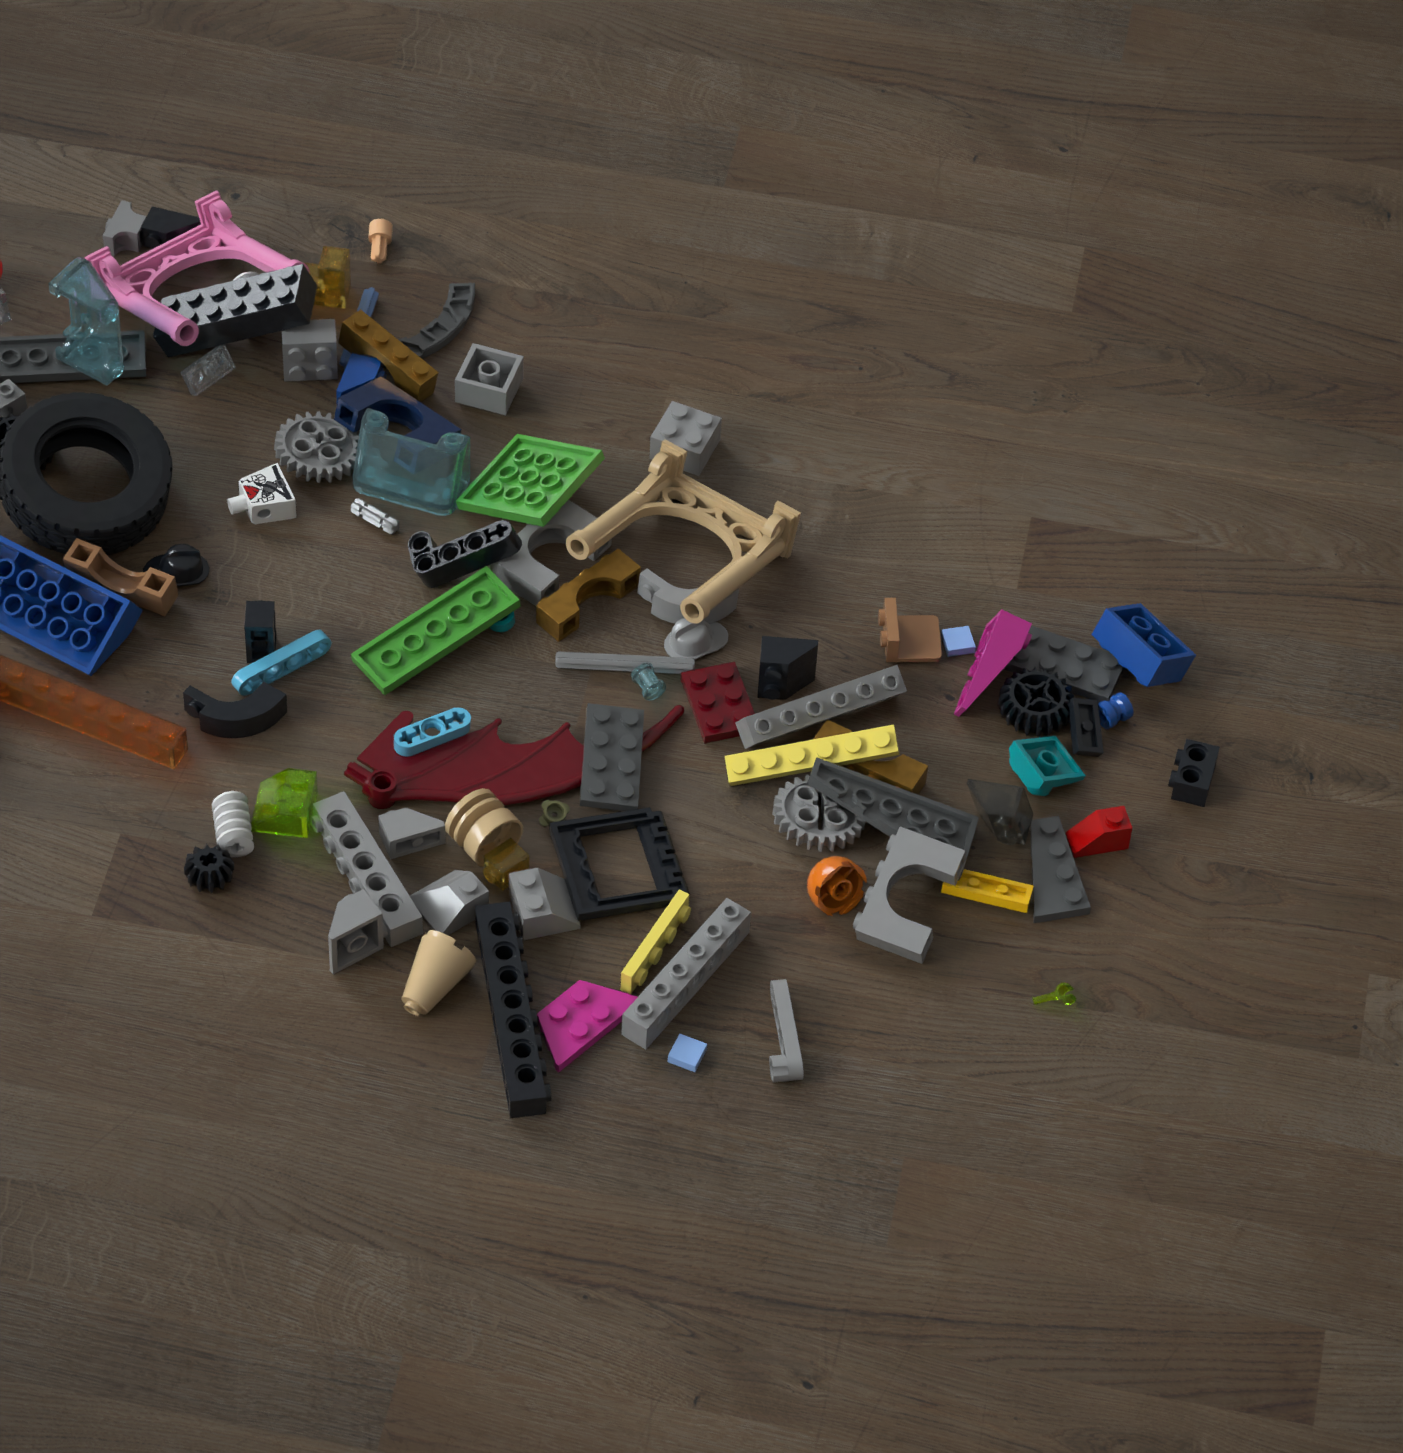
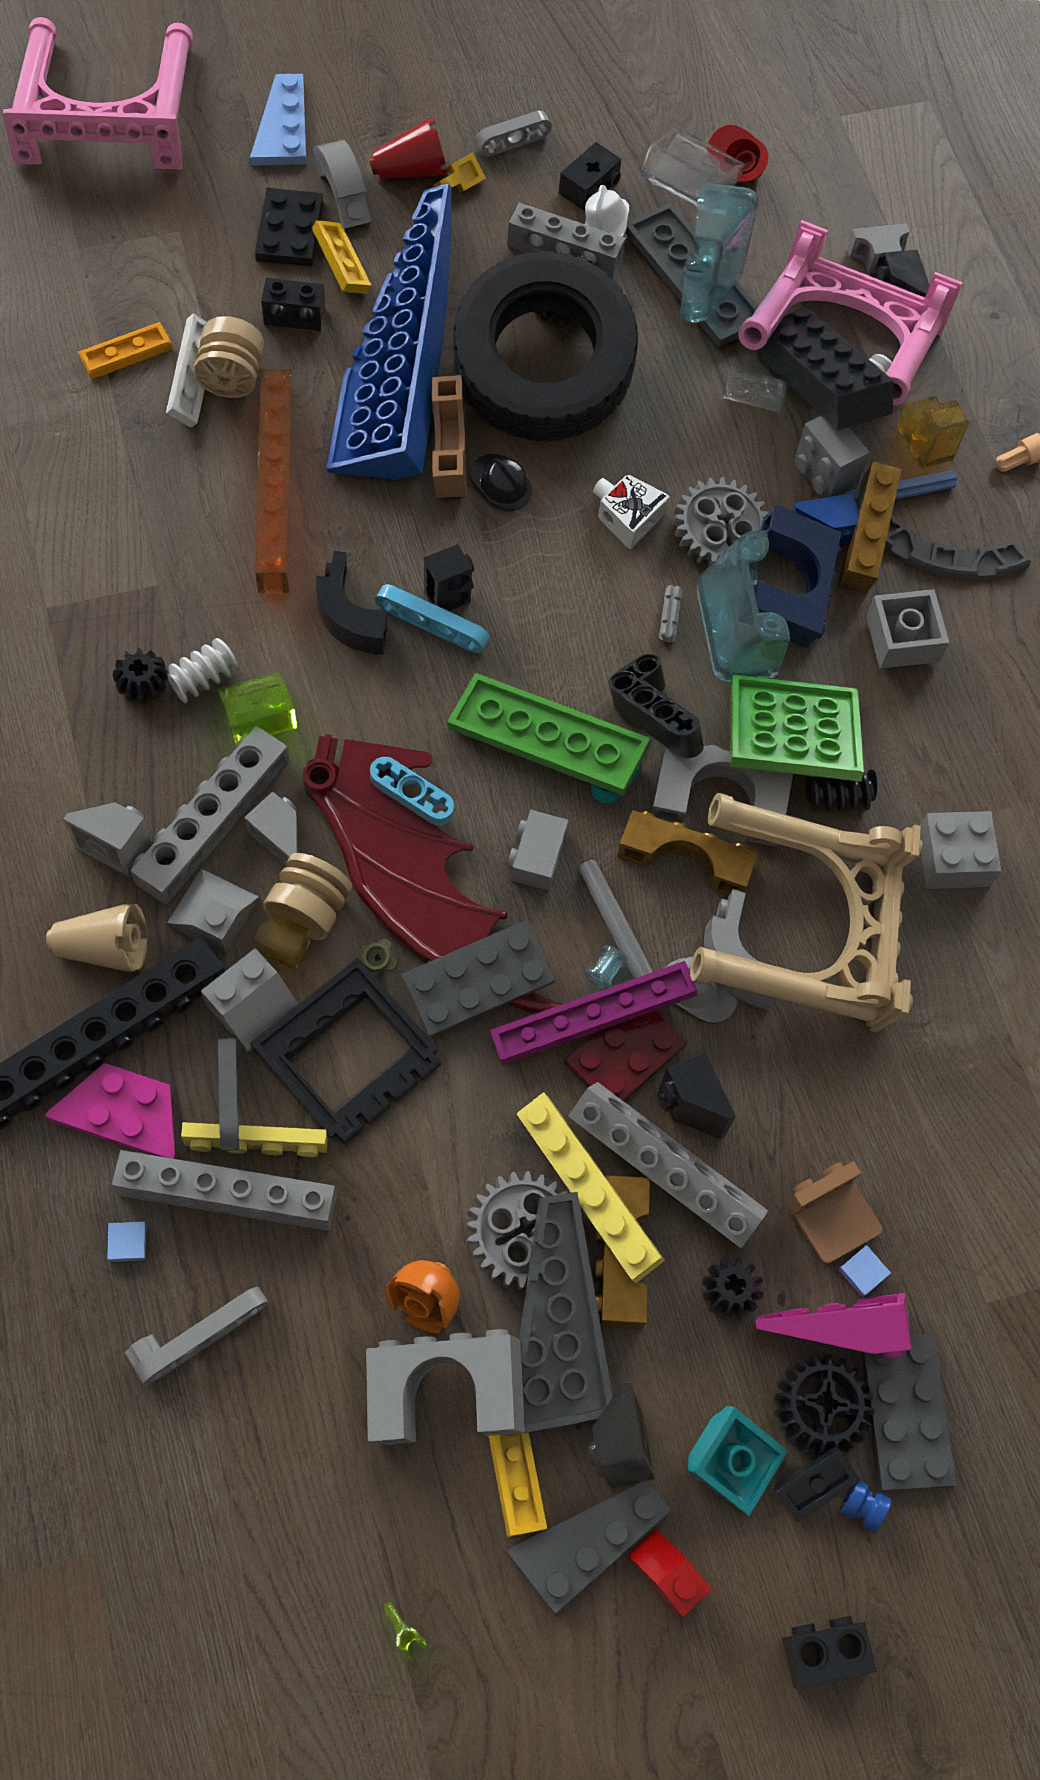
camera: 60 degrees right, 15 degrees up
(528, 679) = (538, 849): none -> light grey brick
(598, 484) = (841, 791): none -> black piece
(646, 934) = (228, 1094): none -> dark grey beam
(683, 699) = (593, 1012): none -> magenta plate
(929, 714) = (737, 1276): none -> black gear
(1143, 645) = (976, 1500): blue brick -> none

